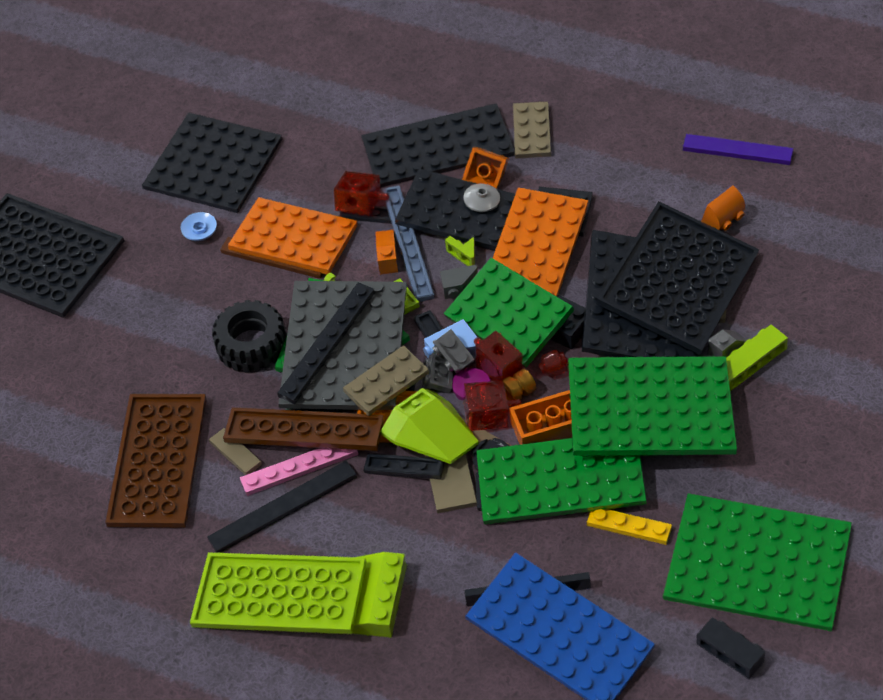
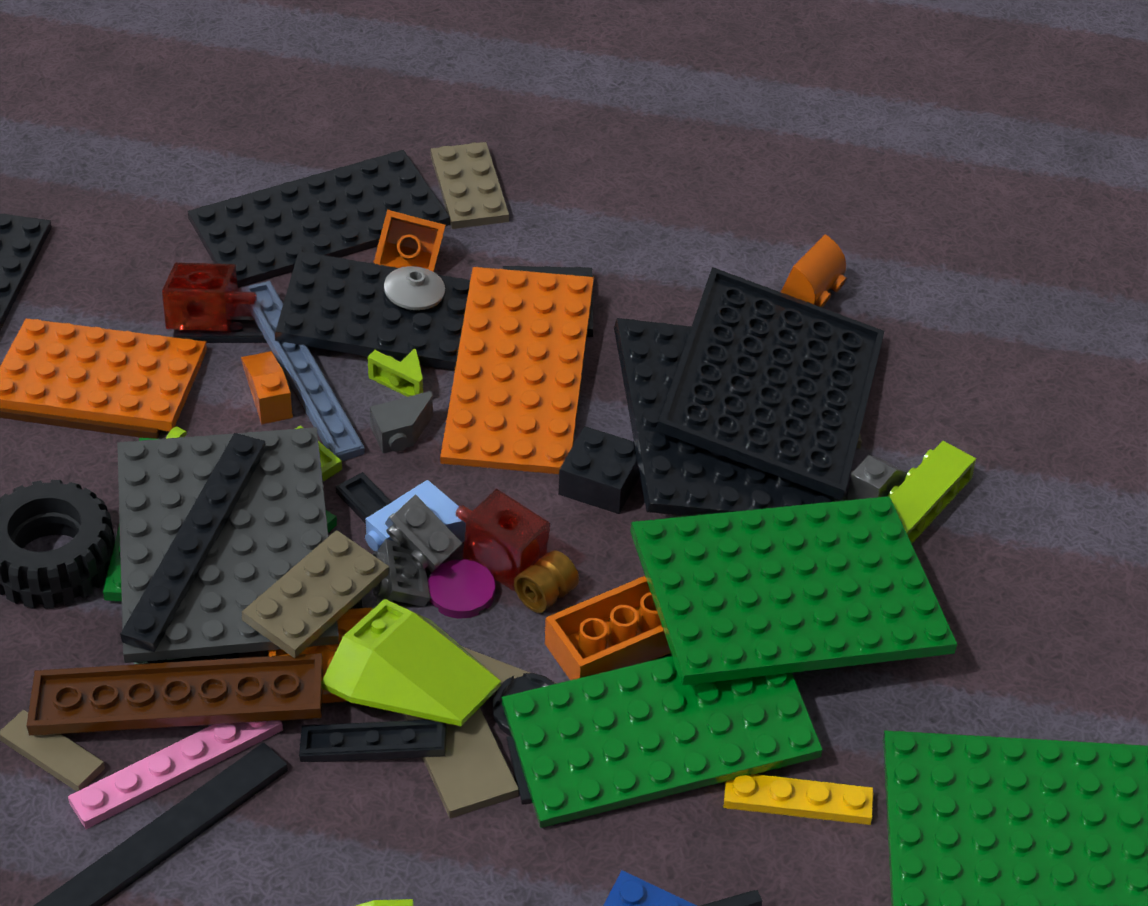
camera: 20 degrees left, 5 degrees down
(487, 405) = (501, 618): clear red piece -> none
(511, 306) = (494, 441): green plate -> none
(553, 363) = (598, 538): clear red head -> none
(738, 149) = (803, 190): dark purple tile -> none

